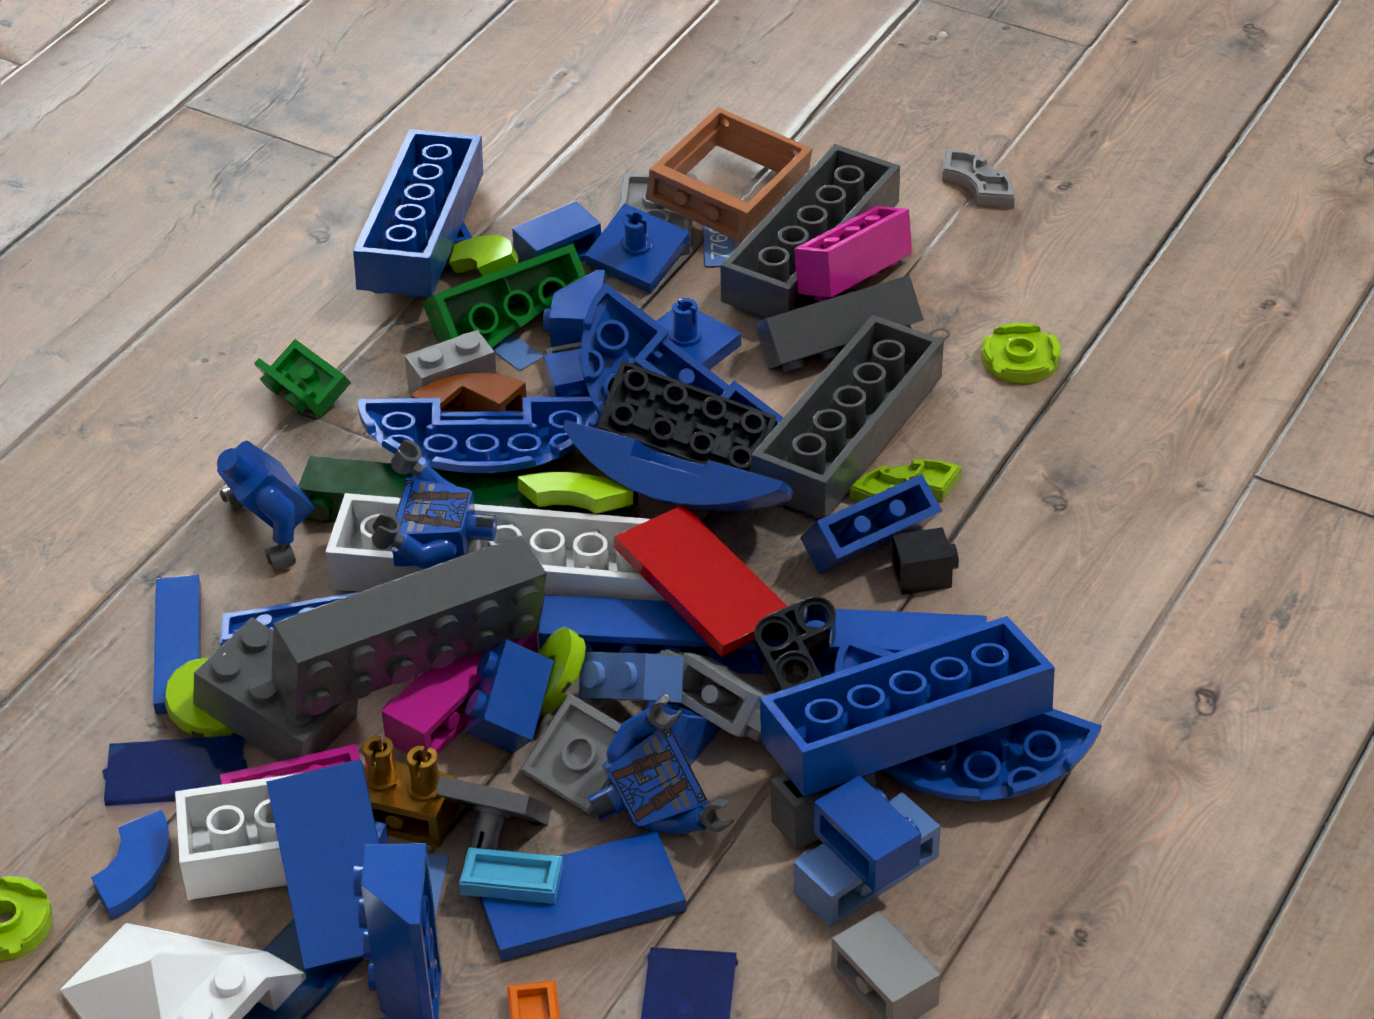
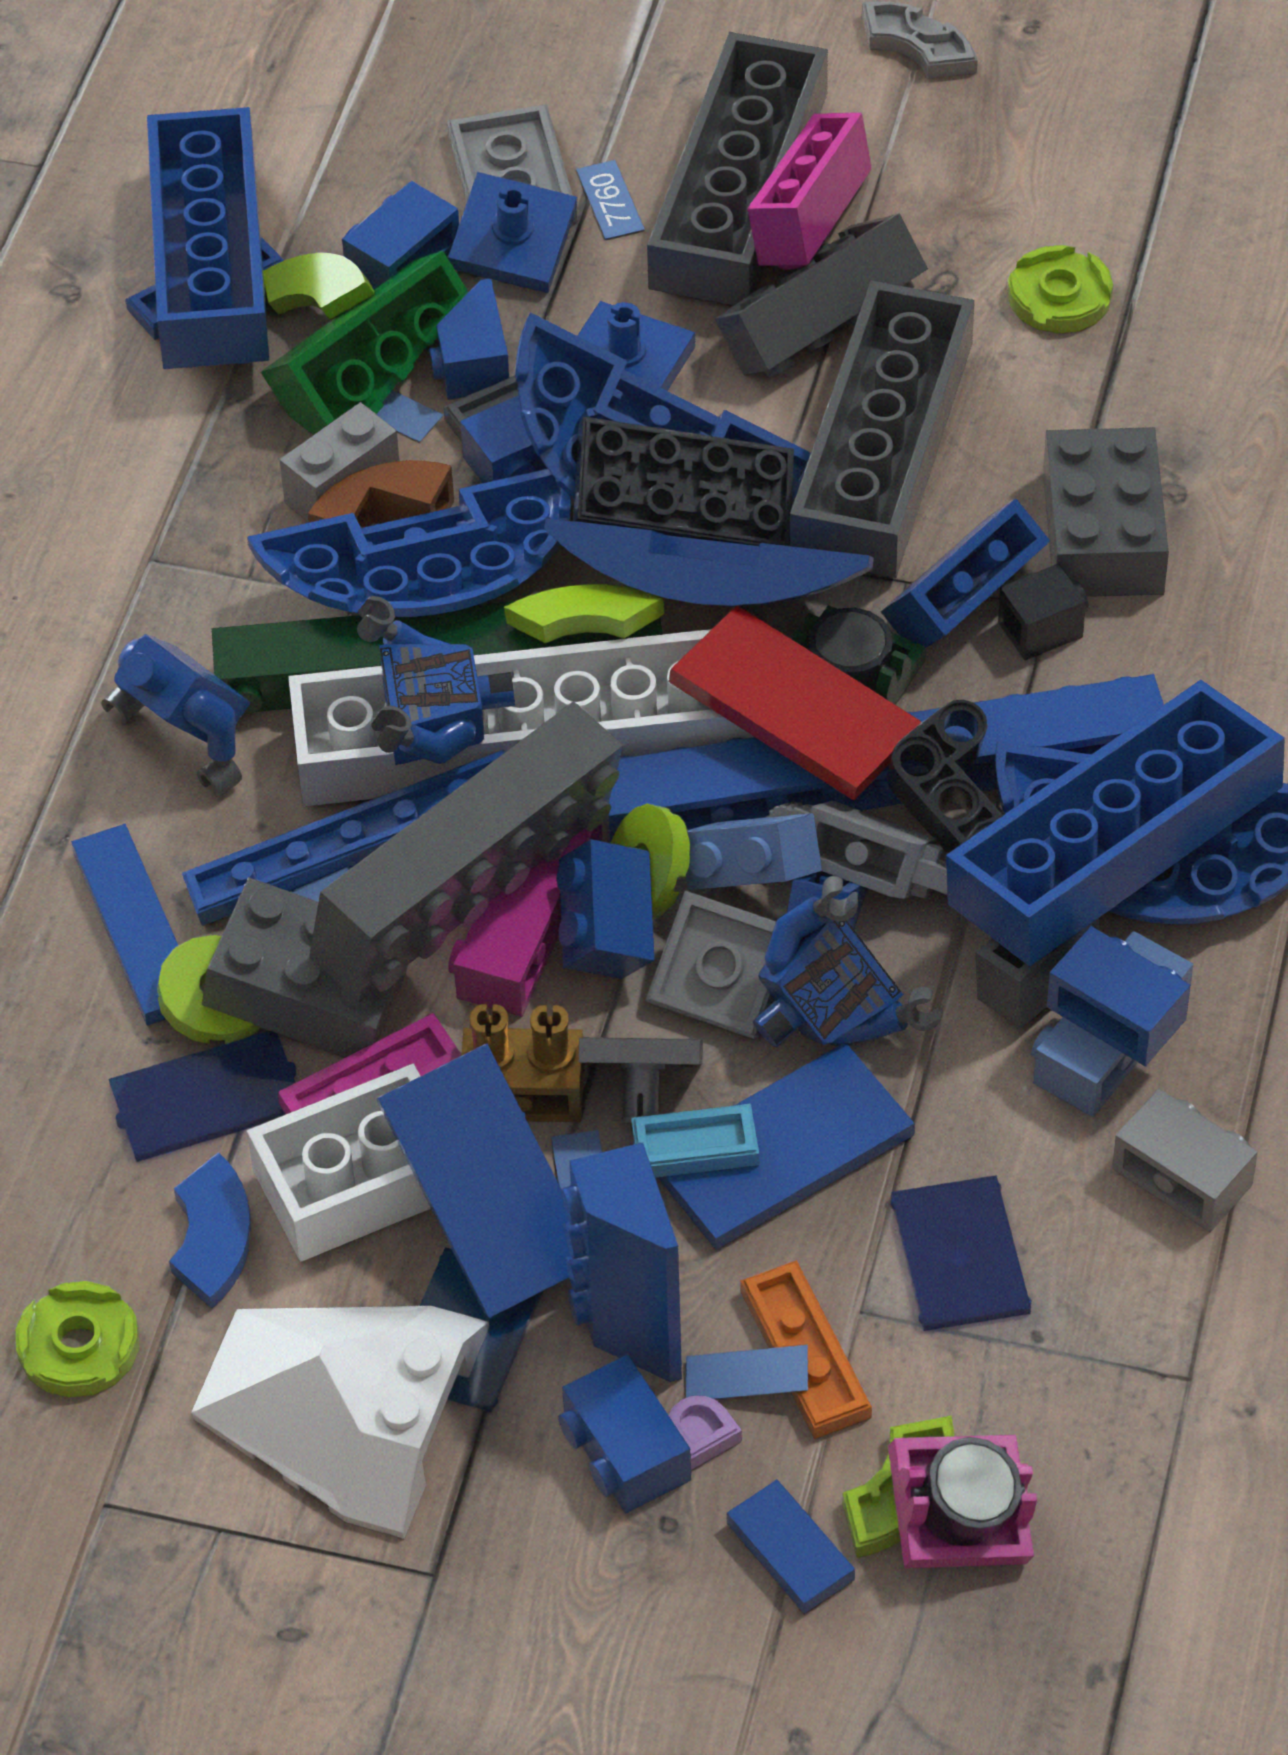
camera: 15 degrees left, 10 degrees up
(304, 378) = (147, 513): green bracket -> none
(714, 208) = (582, 149): nougat window -> none
(776, 560) = (863, 649): none -> piece
(939, 475) = (960, 509): lime tile -> none
(995, 501) = (1106, 509): none -> dark grey brick

